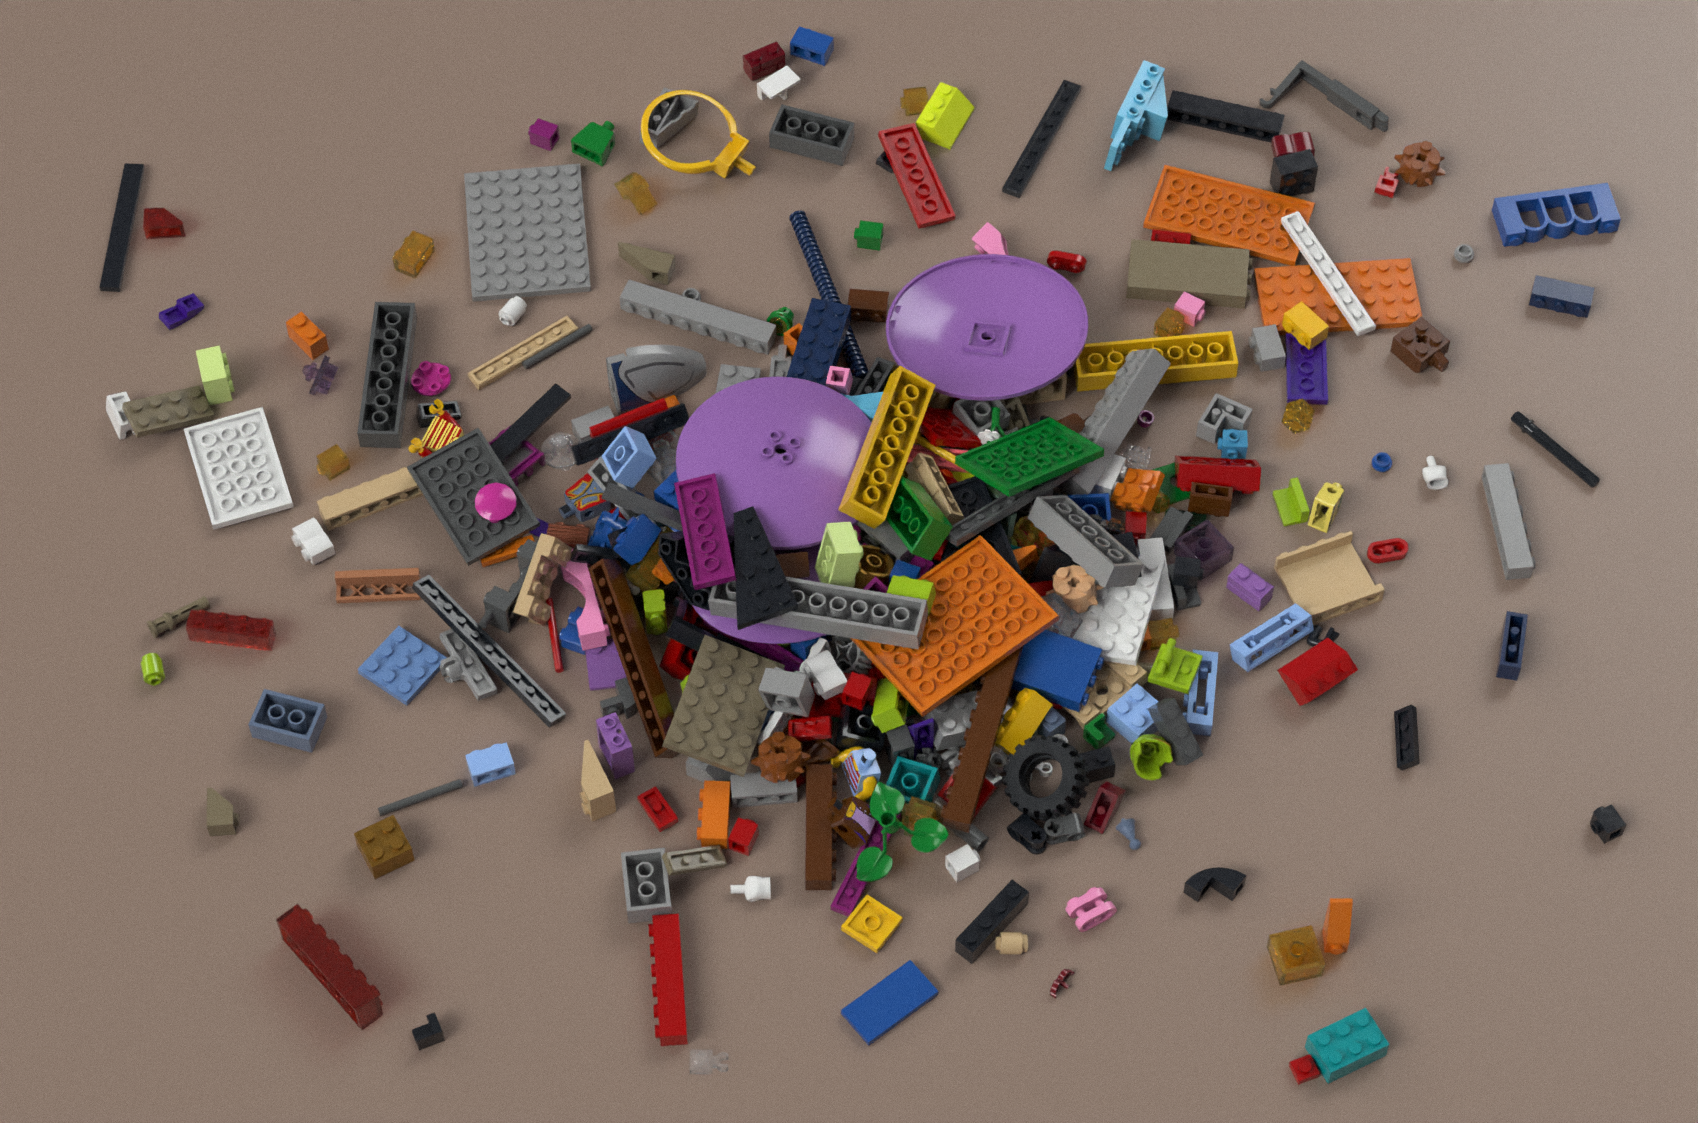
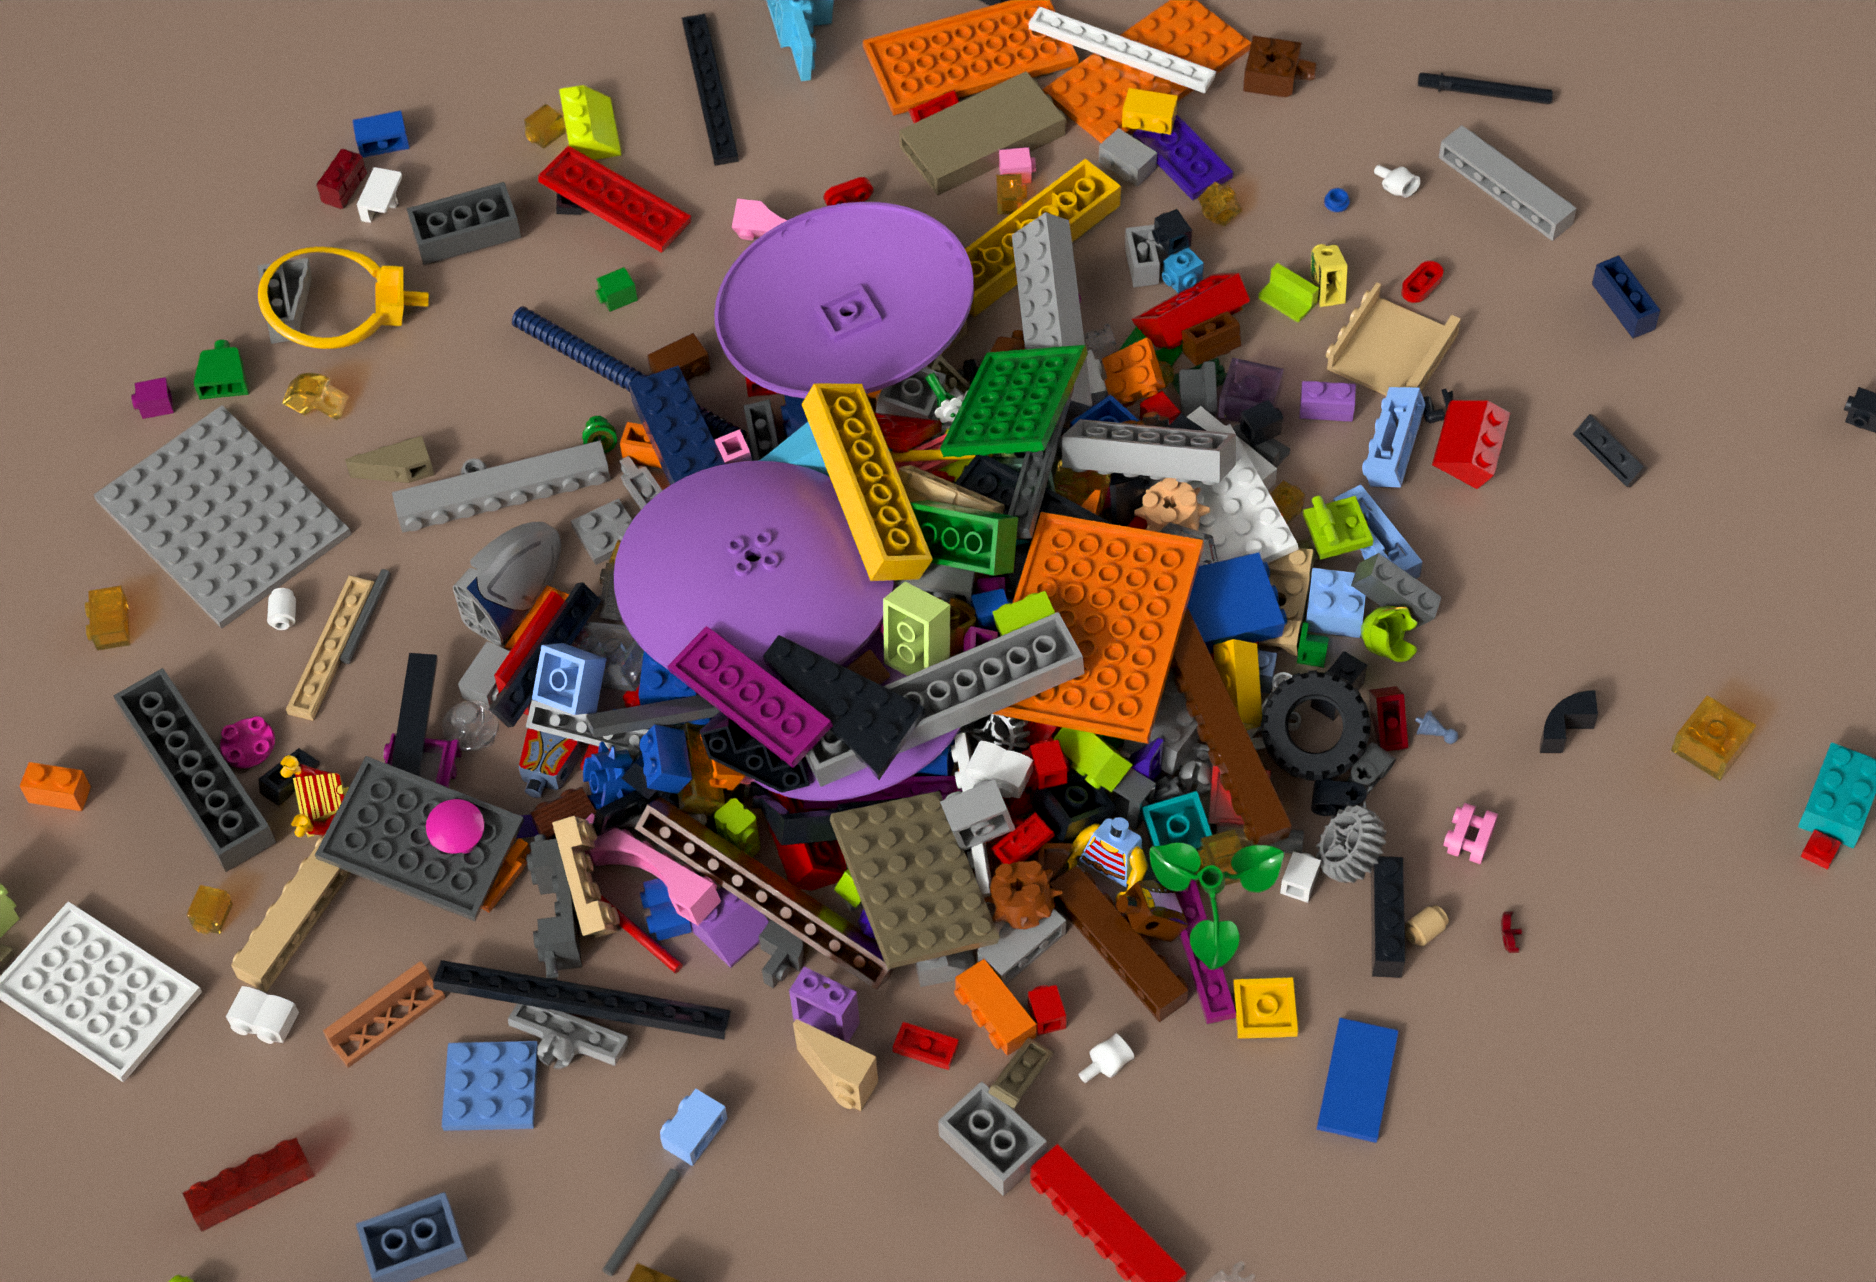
camera: 35 degrees left, 0 degrees up
(169, 620) = (158, 1225): dark tan pin -> none
(320, 384) = (106, 822): clear purple hips -> none
(1005, 863) = (1351, 844): none -> light grey gear
(1239, 413) = (1172, 232): none -> black brick
(1337, 925) = (1730, 677): orange slope -> none

